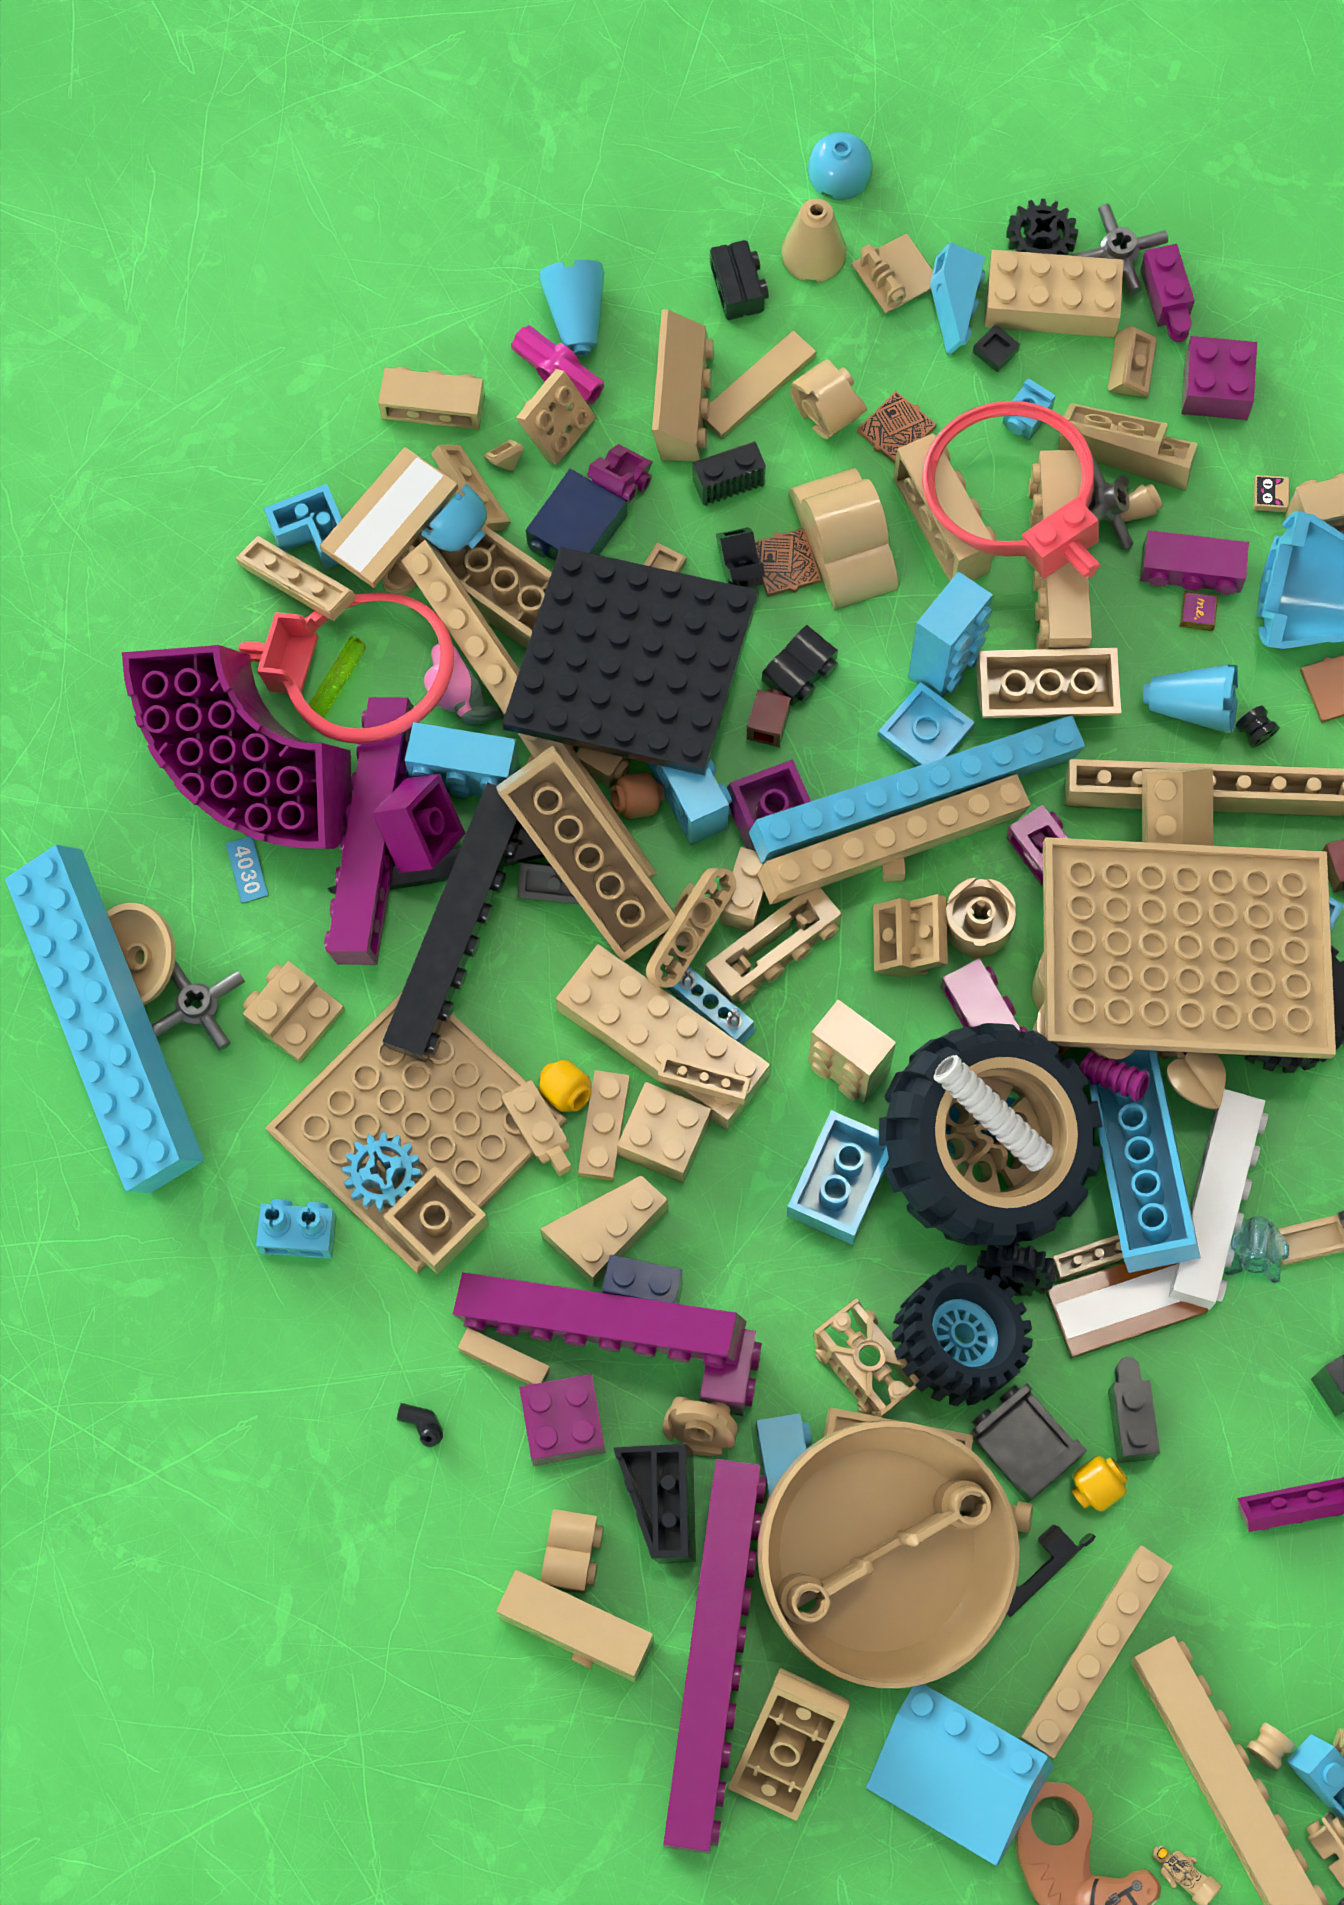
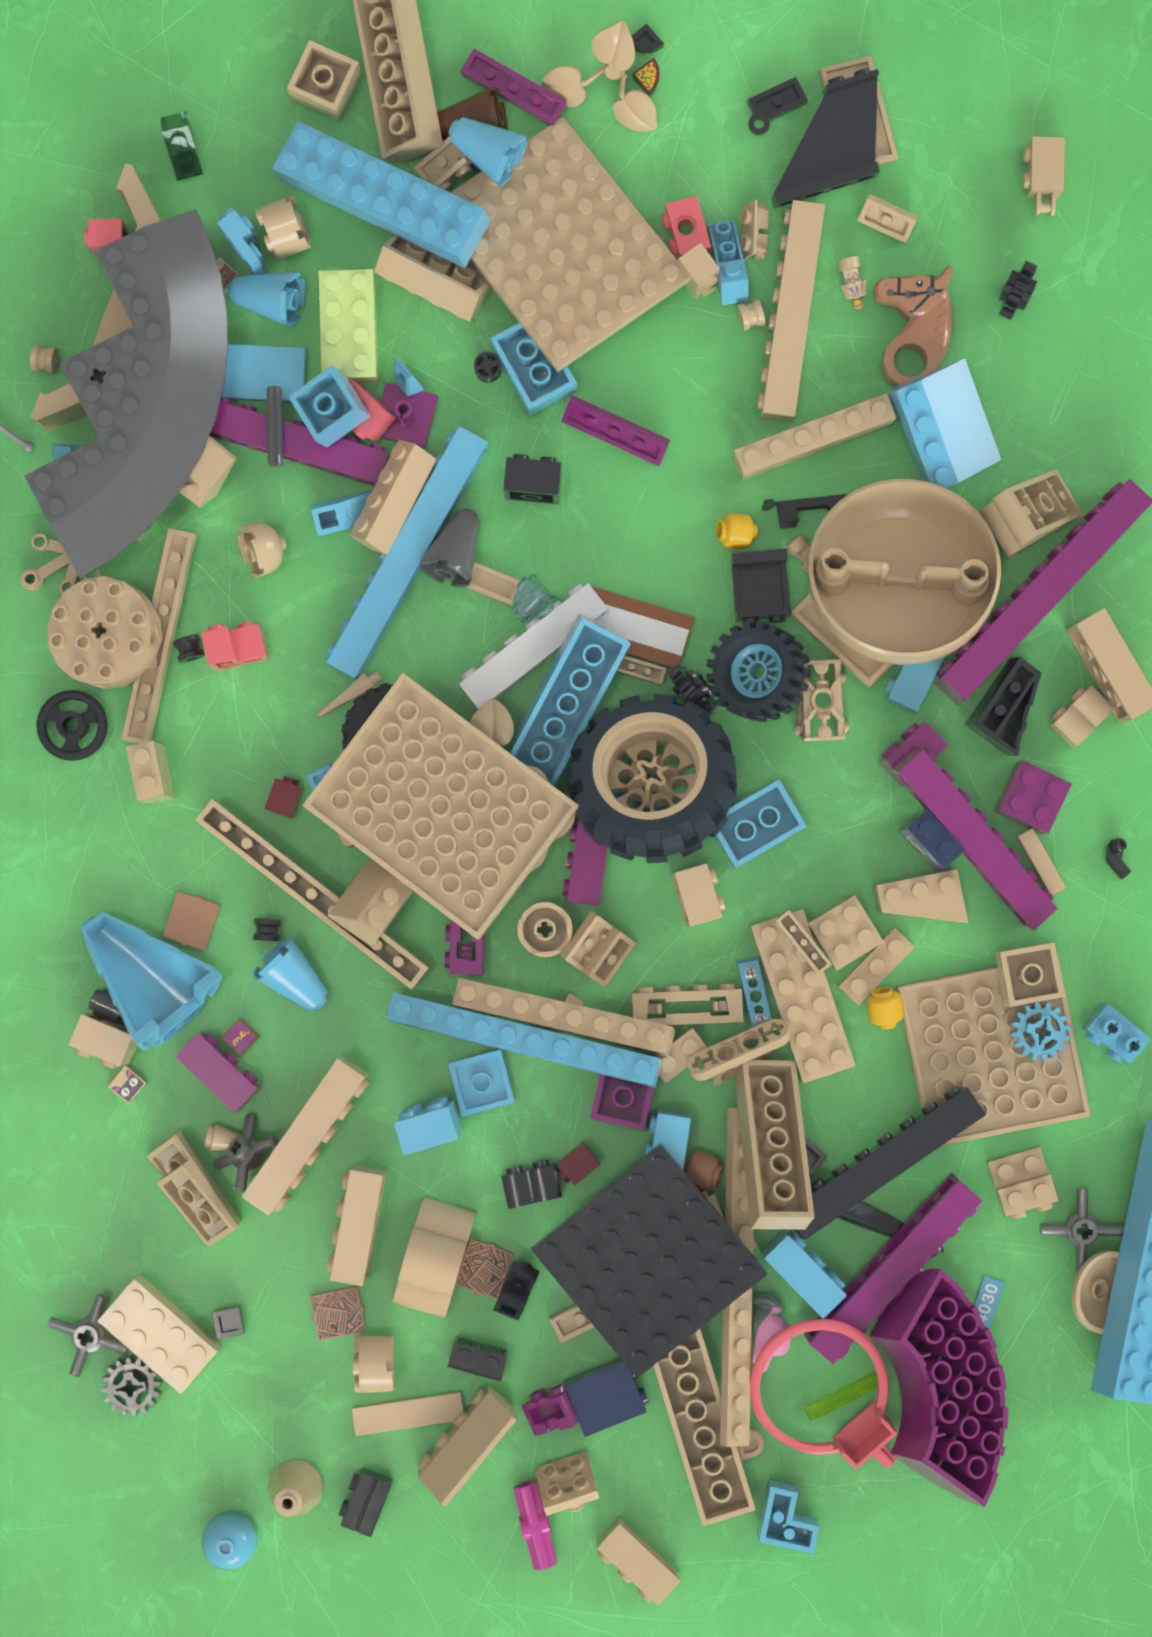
camera: 145 degrees left, 15 degrees up
(295, 578) = (822, 1488): tan tile -> none
(389, 517) = (735, 1484): tile -> none
(419, 823) = (863, 1247): magenta brick -> none
(458, 467) = (658, 1473): tan plate -> none
(458, 522) = (695, 1444): medium azure cylinder -> none
(505, 455) = (617, 1483): tan slope -> none
(538, 1126) = (920, 992): tan hinge -> none
(575, 302) = (492, 1561): medium azure cone -> none
(700, 1426) = (952, 728): tan plate -> none
(894, 272) = (252, 1429): tan hinge -> none
(954, 289) = (223, 1387): medium azure slope -> none
(993, 1113) = (652, 780): white piece -> none
(1030, 393) = (231, 1260): medium azure brick -> none
(1048, 683) = (383, 1051): tan slope -> none
(1056, 539) = (307, 1140): coral brick -> none
(1115, 1075) = (547, 759): magenta piece -> none
(1132, 362) = (144, 1246): tan slope -> none
(1132, 1414) = (685, 556): brick -> none
(1168, 290) = (80, 1278): magenta brick -> none
(1219, 378) = (97, 1190): magenta brick -> none

